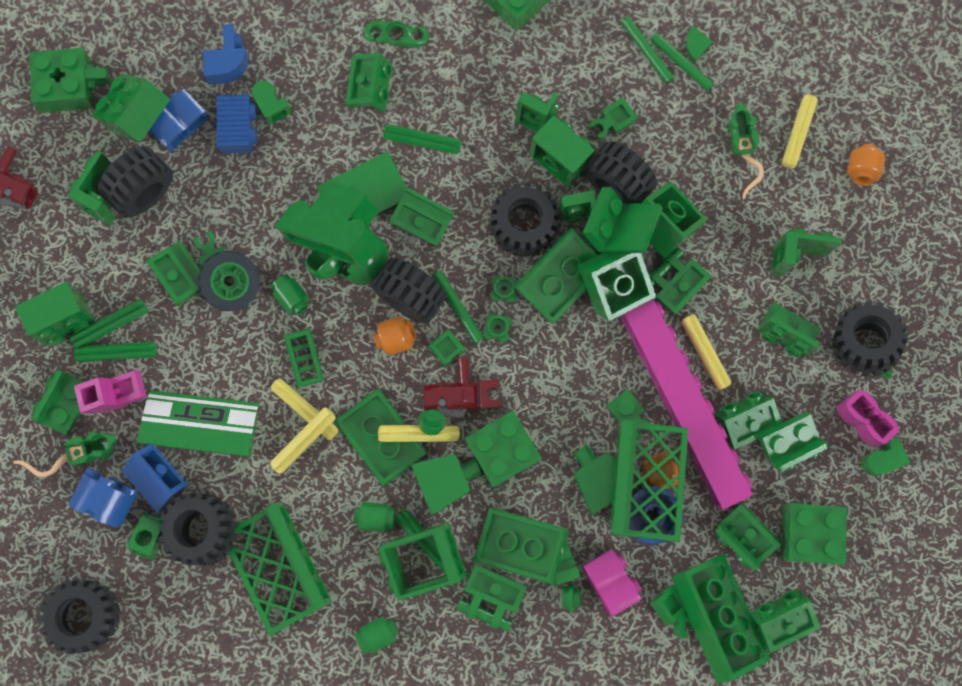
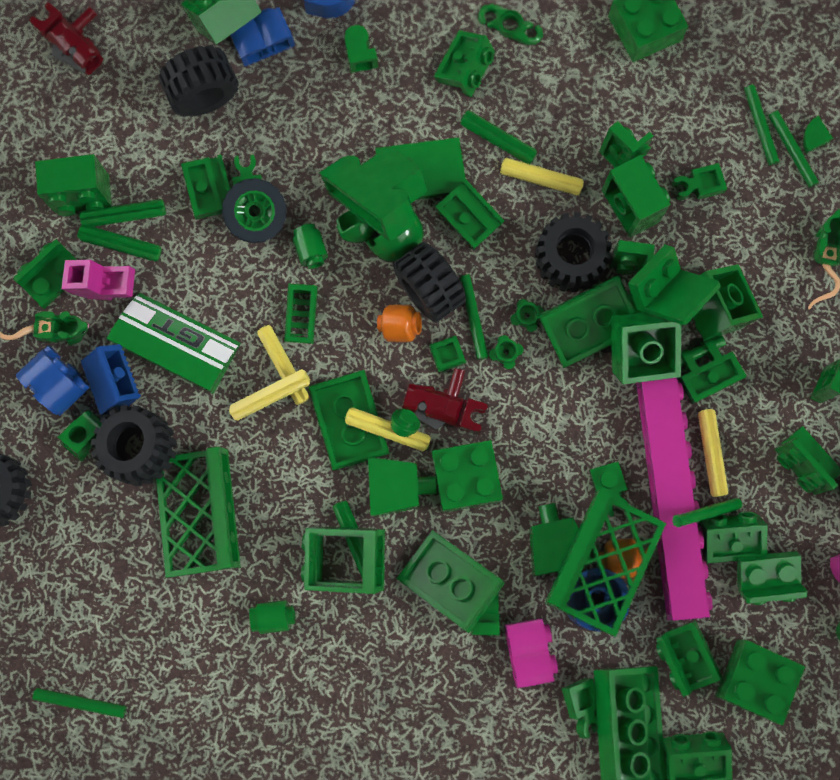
camera: 25 degrees right, 0 degrees up
(85, 189) = (145, 74): green bracket -> none
(235, 124) = (318, 59): blue brick -> none
(374, 517) = (312, 497): green brick -> none
(472, 161) = (542, 176): none -> light yellow axle
(495, 589) = (407, 615): green plate -> none
(571, 598) = (482, 653): green plate -> none
(621, 170) = (692, 235): black tyre -> none
(719, 406) = (706, 512): none -> green bar

